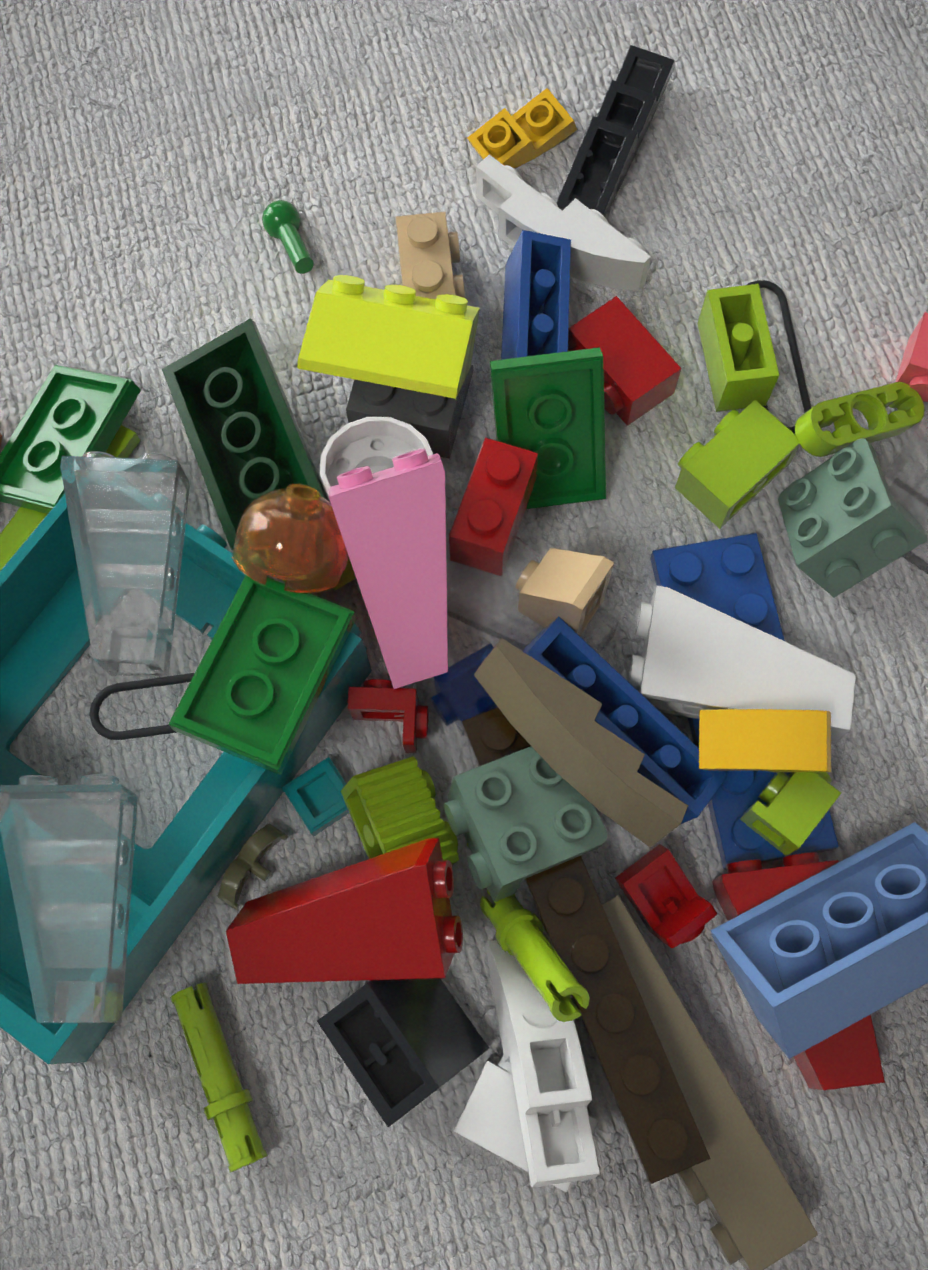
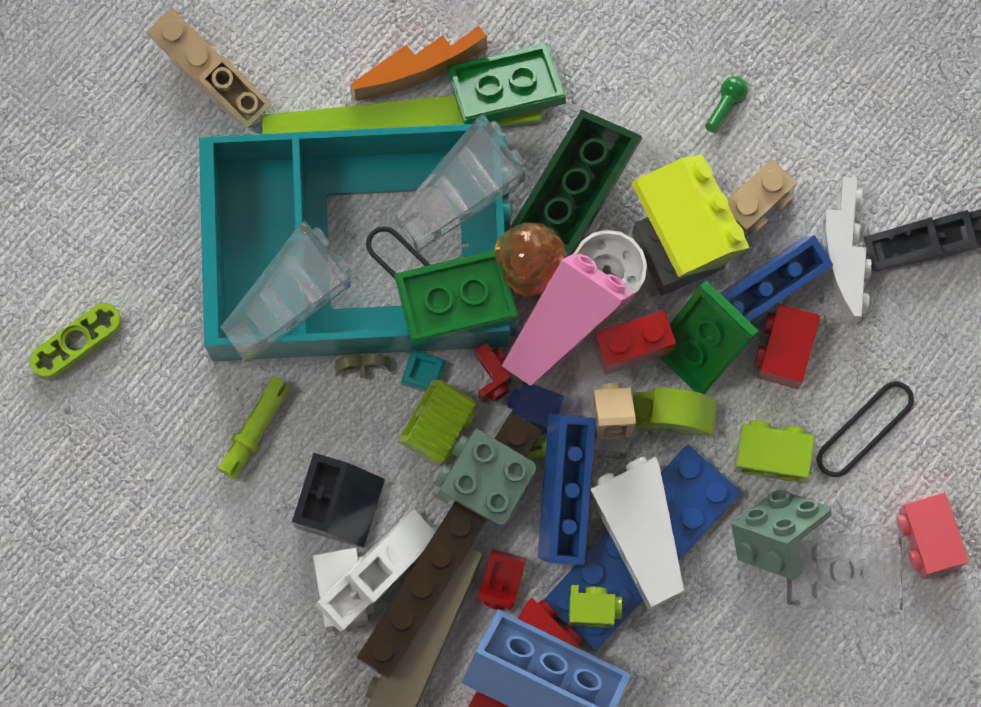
camera: 50 degrees right, 5 degrees up
(354, 923) = (371, 435): red slope -> none
(522, 937) = (426, 523): lime pin -> none
(524, 134) = (898, 183): yellow slope -> none
(562, 730) = (538, 458): dark tan slope -> none
(612, 522) = (675, 410): none -> lime brick
(737, 347) = (842, 403): lime brick -> none
(765, 740) = (610, 566): yellow slope -> none
(872, 405) = (866, 501): lime beam -> none

